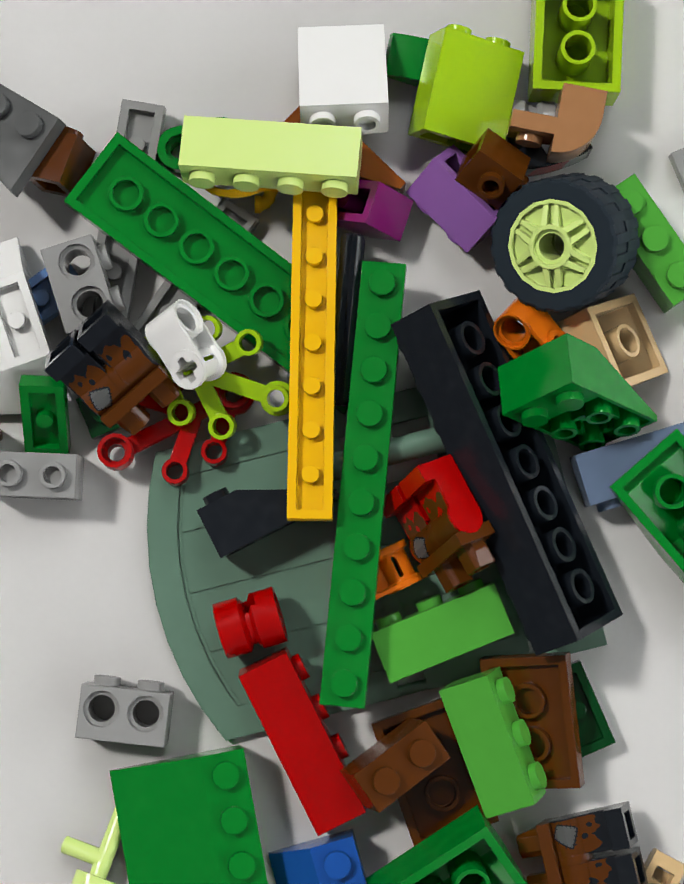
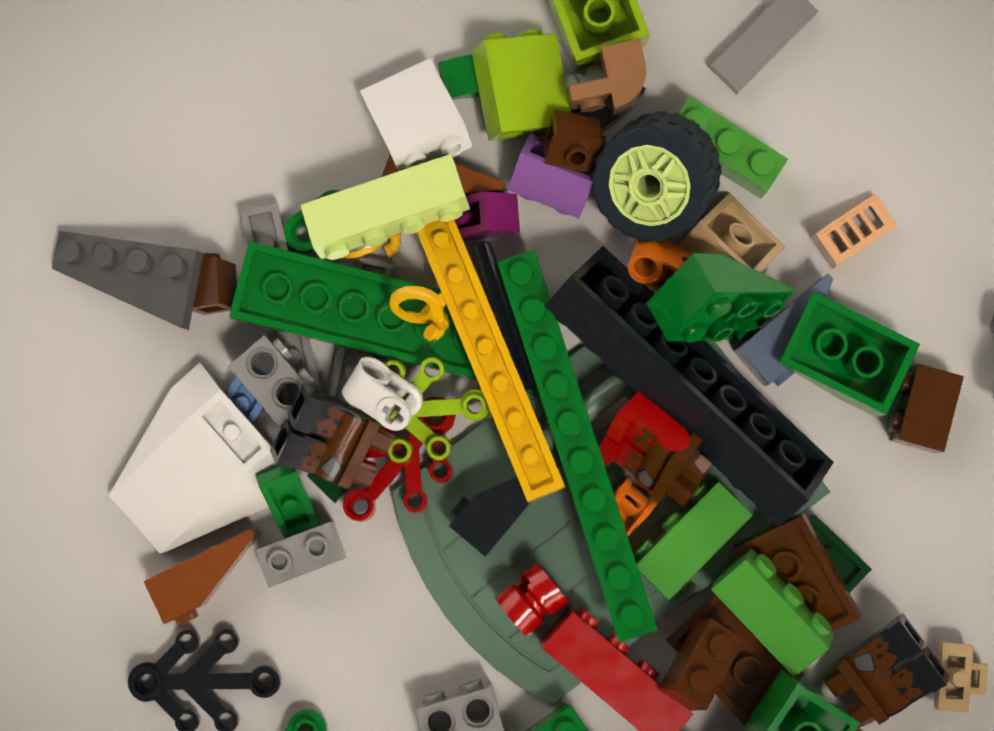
camera: 25 degrees left, 0 degrees up
(273, 286) = (431, 314): none -> yellow piece

